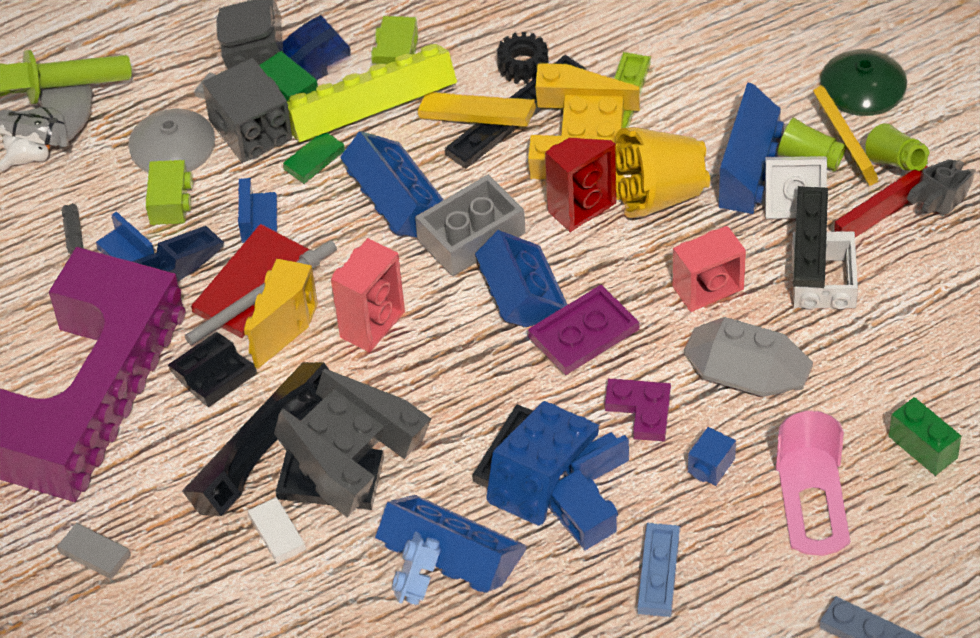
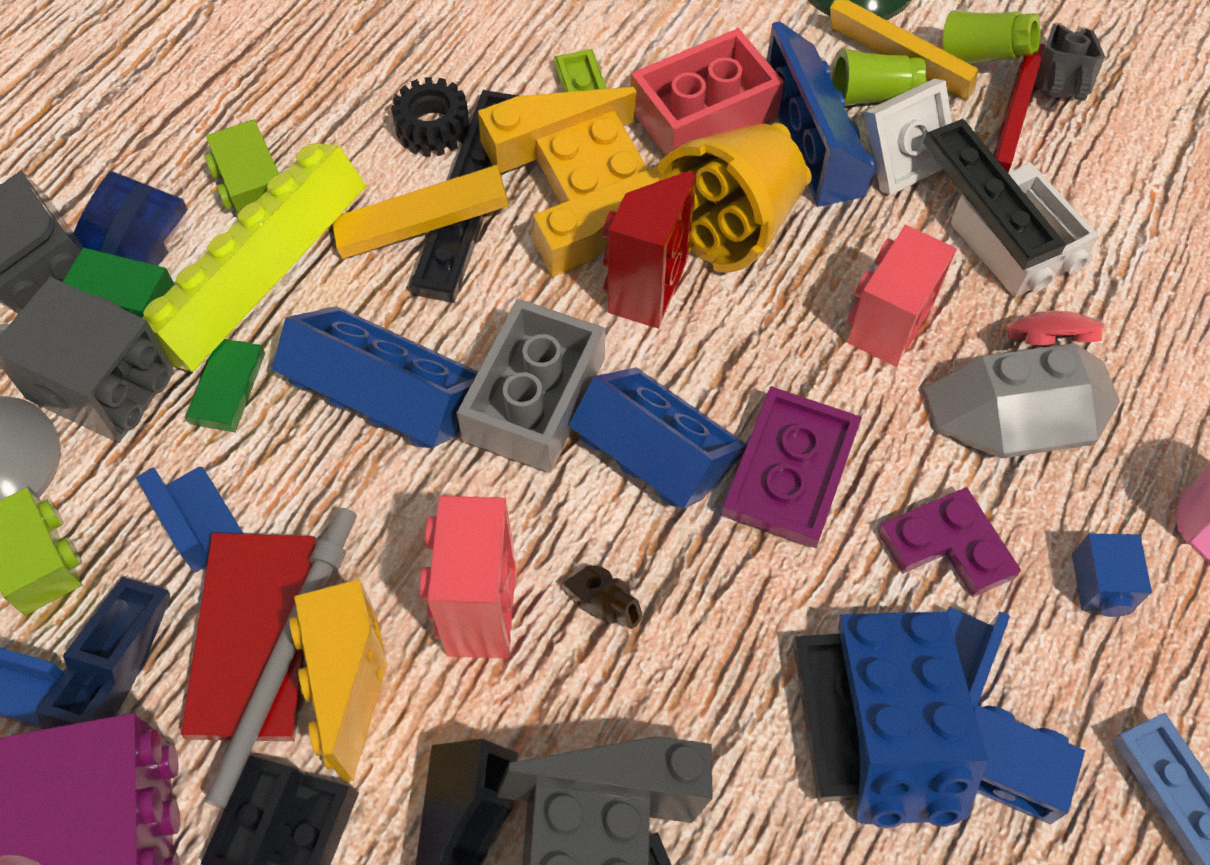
camera: 35 degrees left, 10 degrees up
(435, 344) = (609, 601): none -> dark brown piece
(693, 108) = (706, 91): none -> coral brick
(798, 327) = (1044, 326): none -> coral dish

